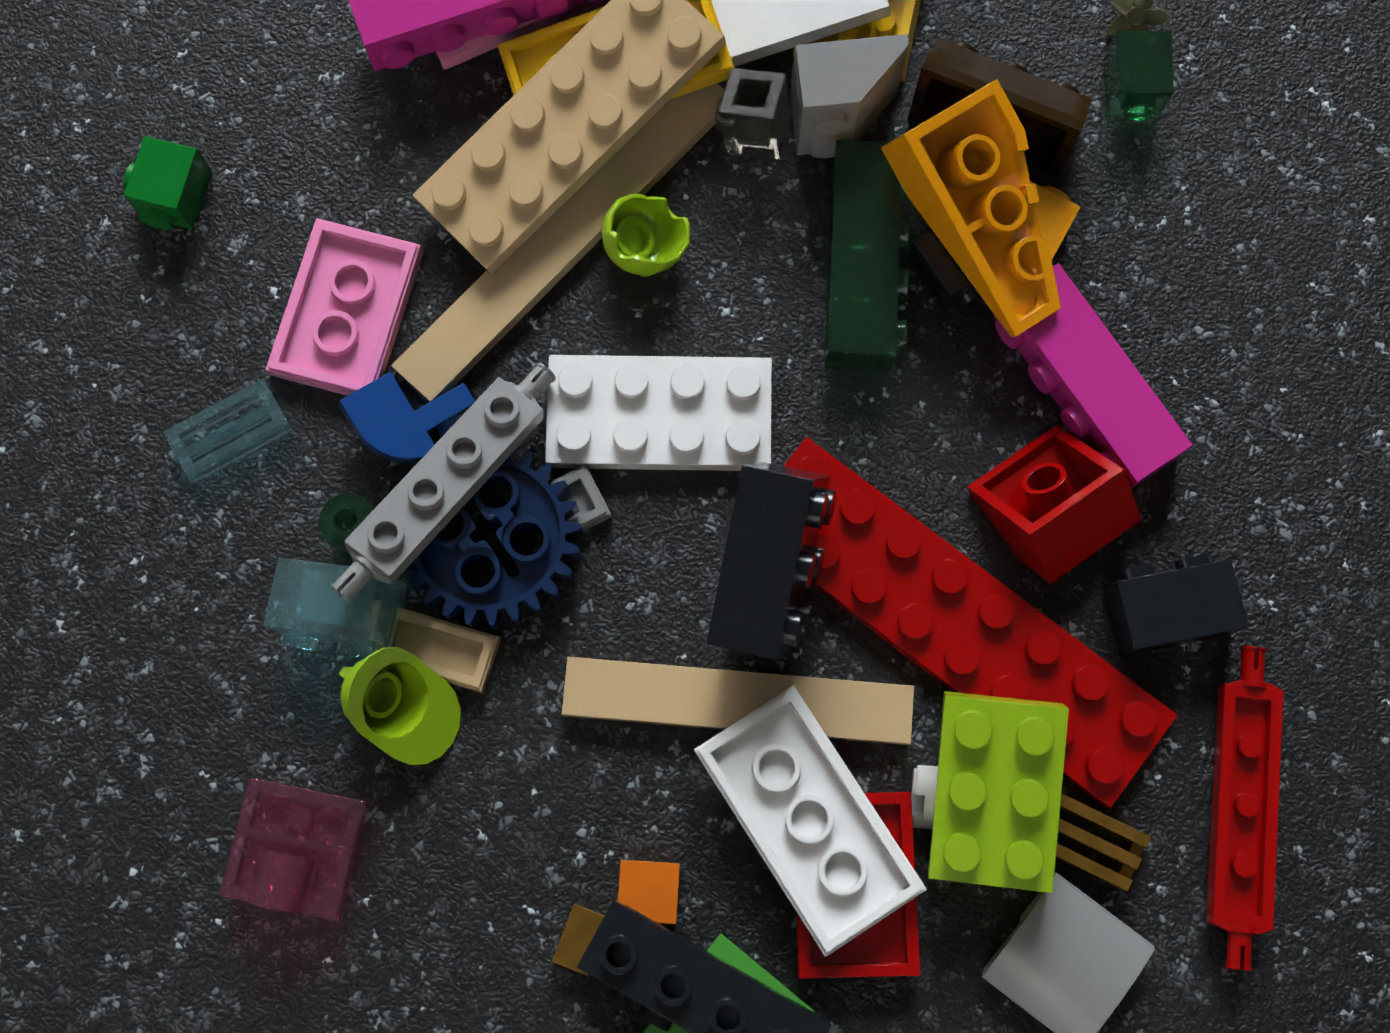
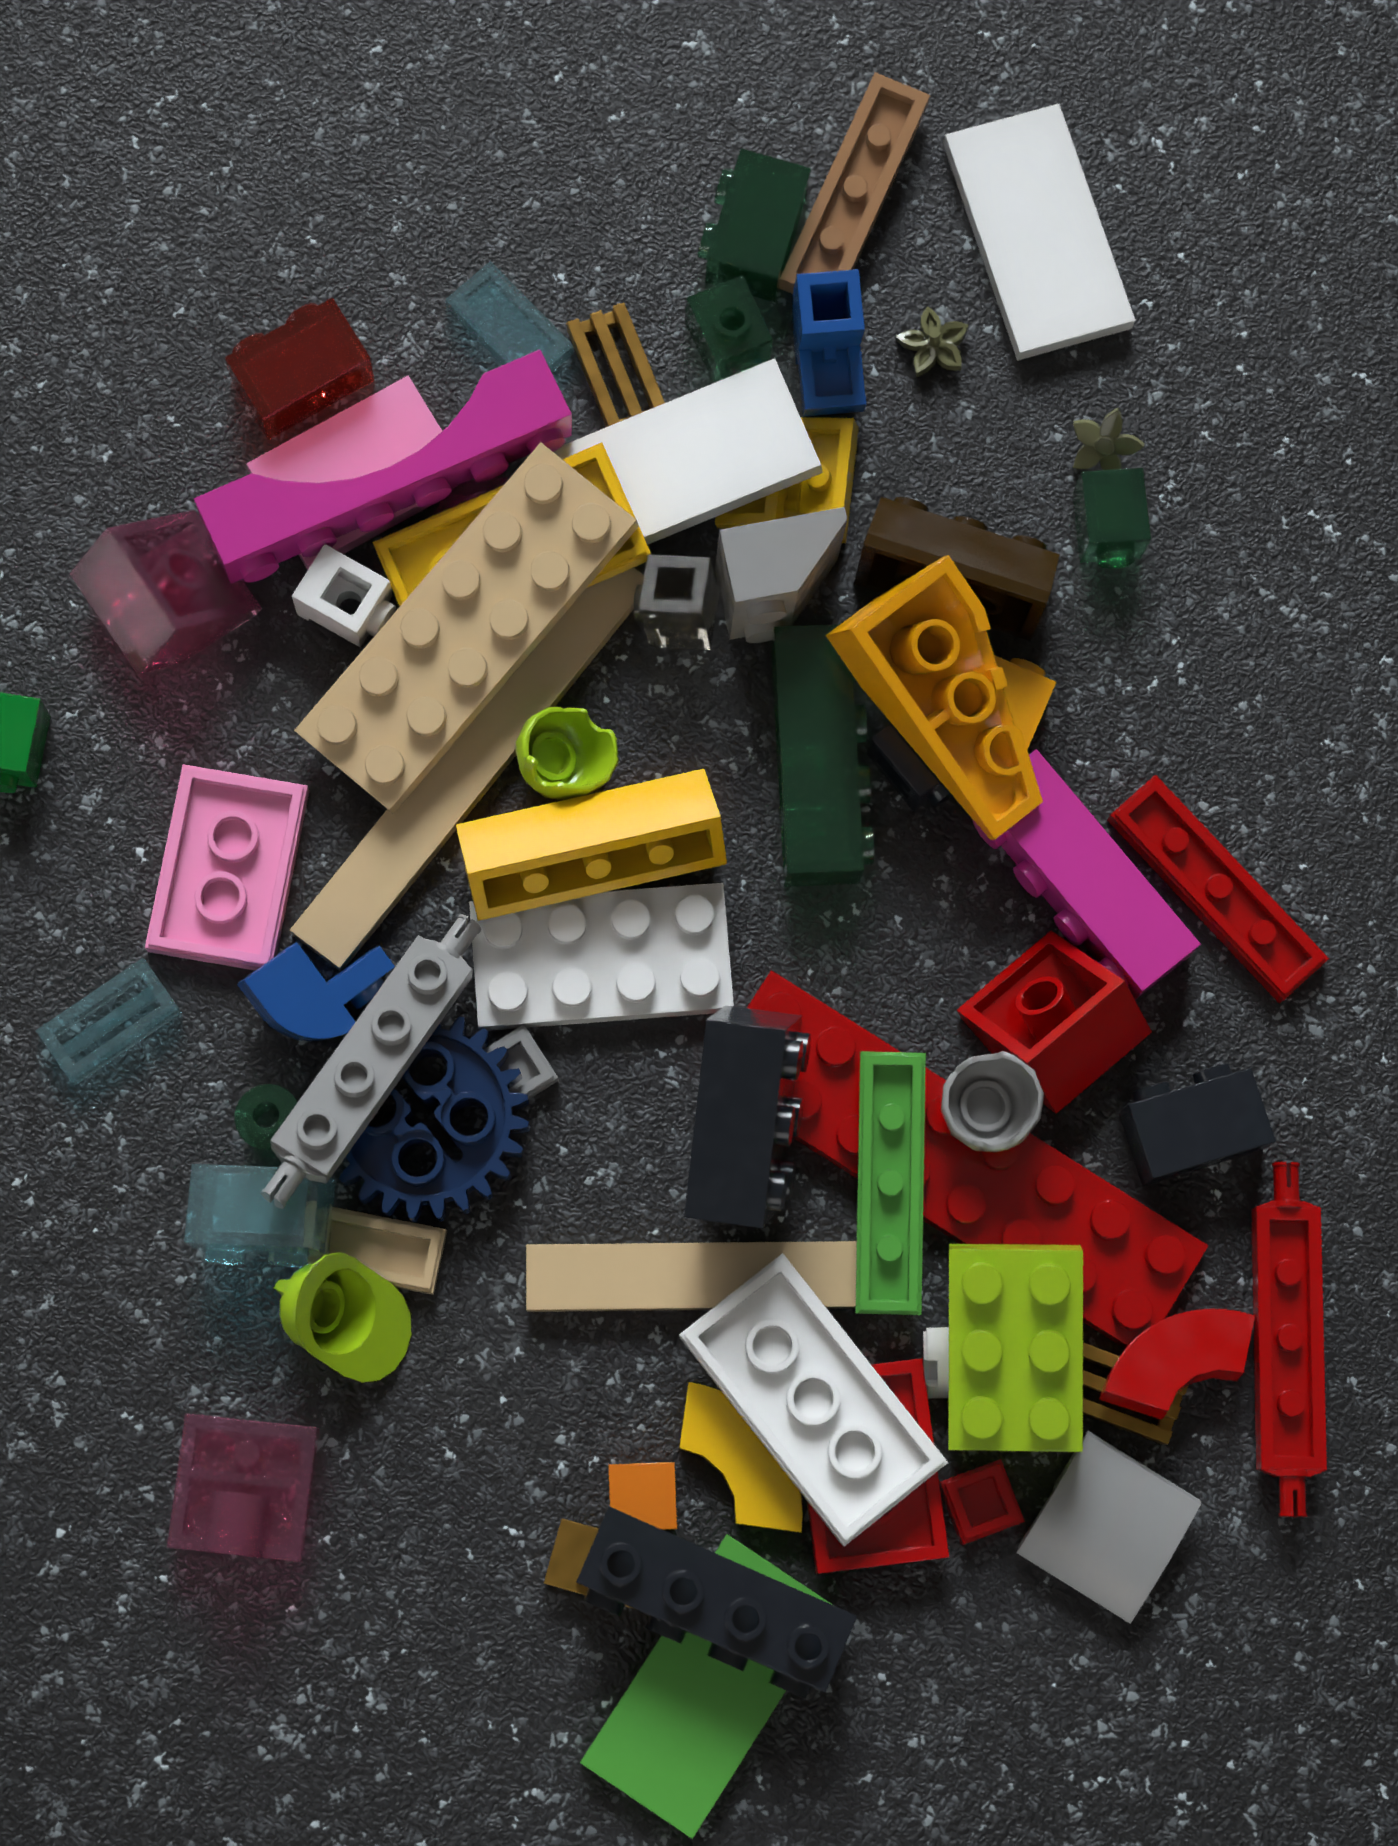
camera: 15 degrees left, 0 degrees up
(314, 70) = (162, 590): none -> clear pink slope
(463, 74) = (338, 578): none -> white brick
(659, 313) = (592, 844): none -> yellow brick
(753, 891) = (757, 1482): none -> yellow tile
(896, 632) = (890, 1183): none -> bright green tile
(953, 926) = (981, 1502): none -> red tile
(994, 567) = (992, 1102): none -> light grey hair
(1143, 810) = (1176, 1354): none -> red tile
(1207, 402) = (1217, 889): none -> red tile

